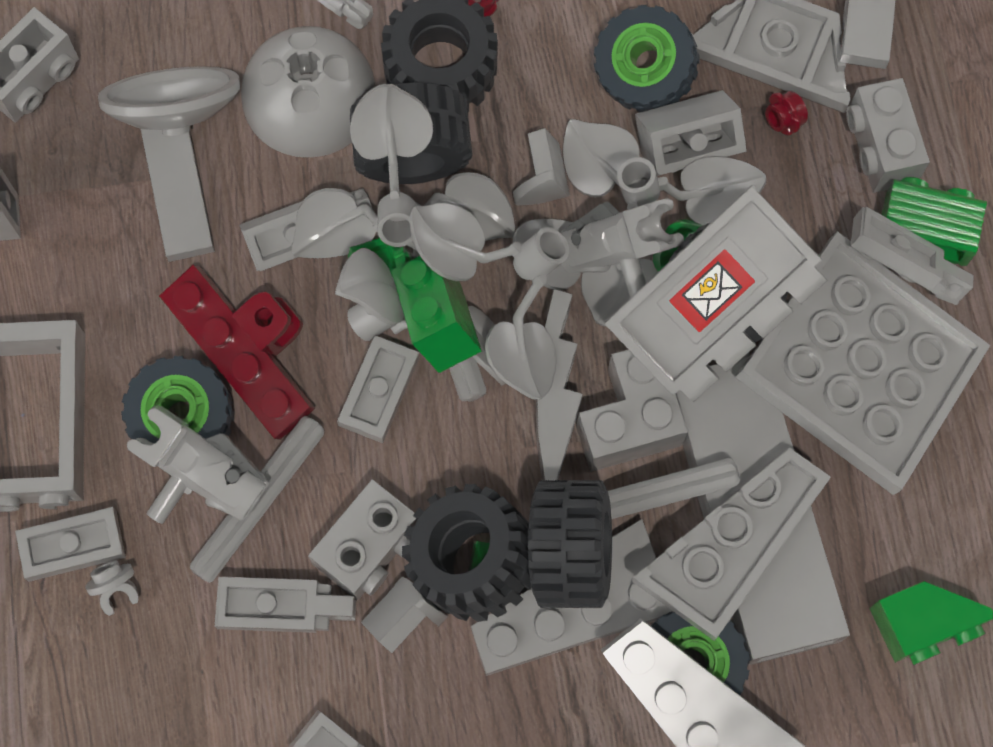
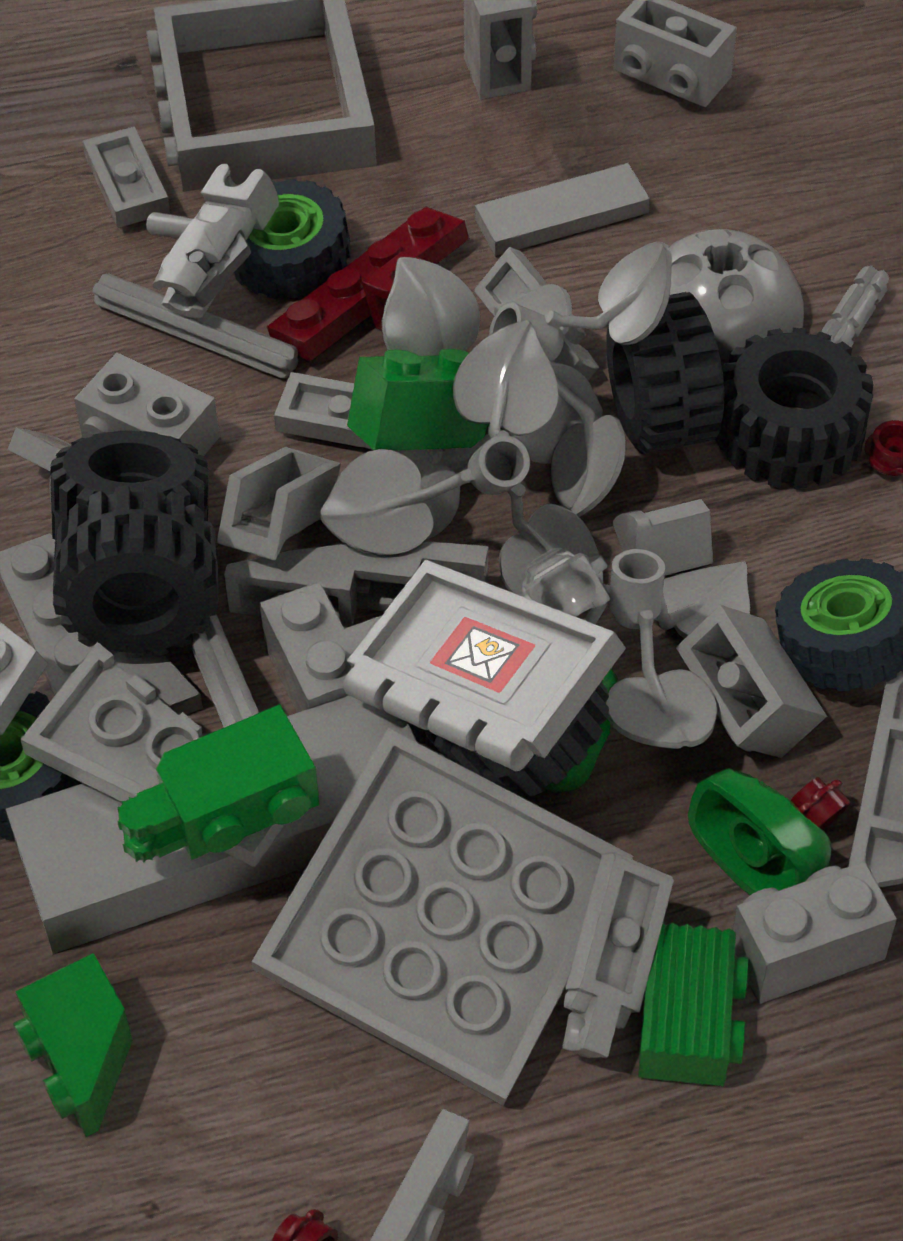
camera: 85 degrees right, 20 degrees down
(109, 579) = (84, 213): light grey plate -> none
(170, 98) = (659, 160): light grey dish -> none
(279, 605) = (65, 355): light grey hinge -> none
(493, 435) = (275, 500): none -> light grey window
(796, 485) = (222, 789): none -> green hinge
(811, 153) = (755, 832): none -> green piece

